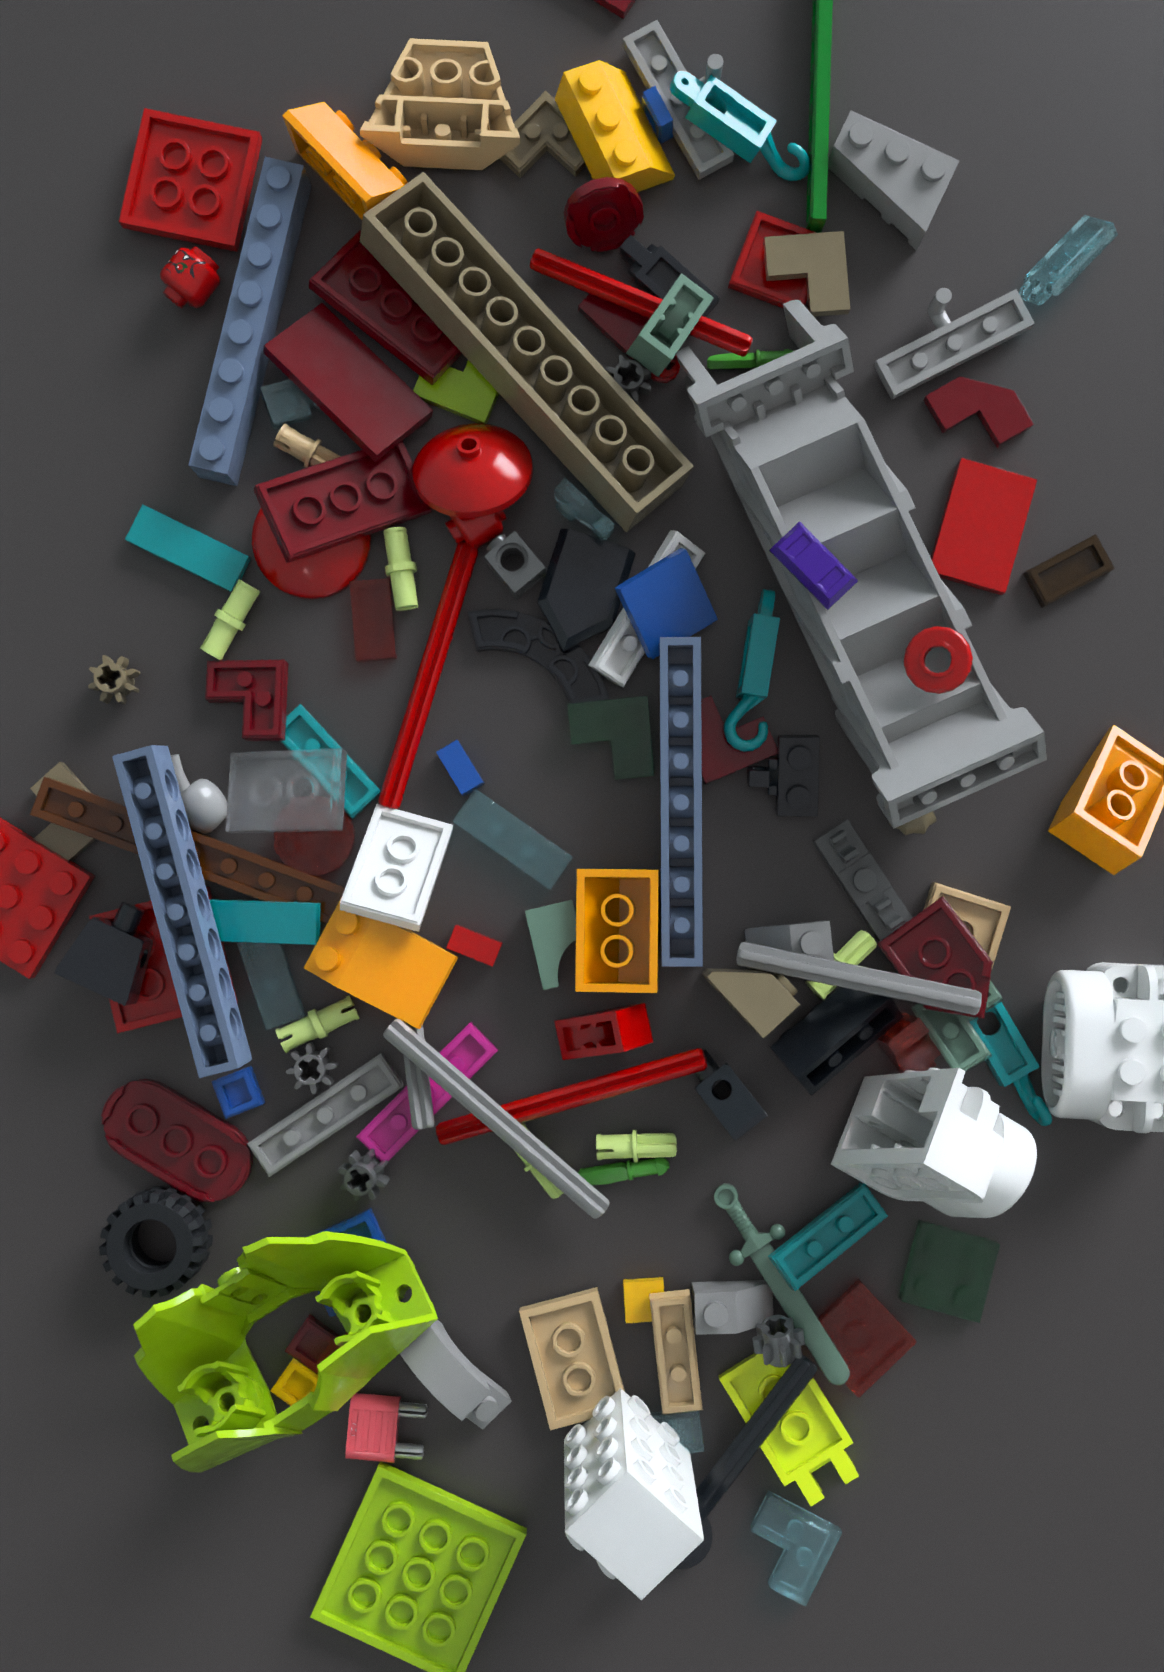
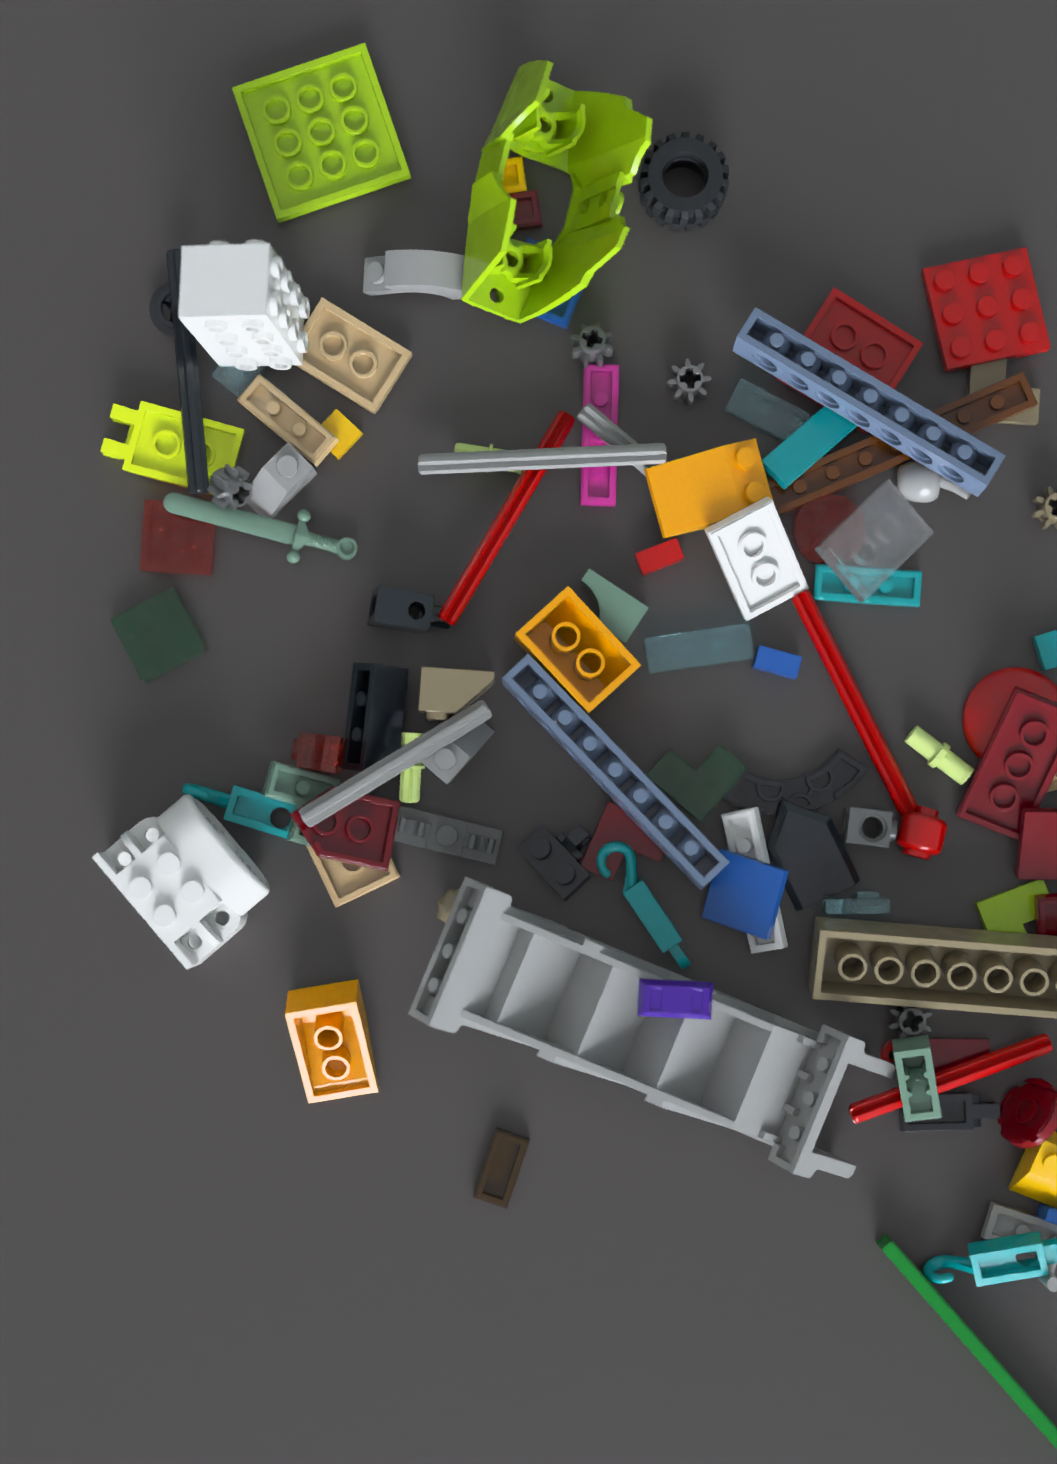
camera: 135 degrees right, 0 degrees up
(110, 956) = (885, 330): black torso -> none
(177, 1140) = (730, 256): dark red tile -> none
(230, 619) = (1017, 617): yellowish green pin -> none
(238, 1092) = (720, 322): blue tile -> none
(261, 688) = (956, 592): dark red tile -> none
(317, 1024) = (711, 412): yellowish green pin -> none
(325, 1114) = (651, 361): light grey tile -> none
(373, 620) = (925, 705): clear red tile -> none
(375, 1427) = (434, 197): coral piece -> none
(472, 470) = (953, 862): red dish -> none
(604, 1032) = (523, 579): red arch -> none
(622, 1171) = (426, 503): bright green piece -> none
(636, 1145) = (435, 526): yellowish green axle -> none
(750, 273) = (885, 1196): red tile -> none
(751, 360) = (841, 1112): bright green piece -> none
(806, 1545) = (97, 380): clear light blue tile -> none
(819, 260) = (863, 1218): dark tan tile -> none
(827, 1236) = (258, 584): teal tile -> none
(892, 173) = (866, 1325): light grey wedge -> none
(923, 643) = (557, 1010): red piece -> none
(936, 1144) = (248, 703): white brick -> none
(952, 341) = (720, 1249): light grey plate -> none
(982, 526) = (586, 1143): red tile -> none
(995, 406) = (651, 1233): dark red tile -> none
(1067, 259) = (696, 1376): clear light blue hinge -> none

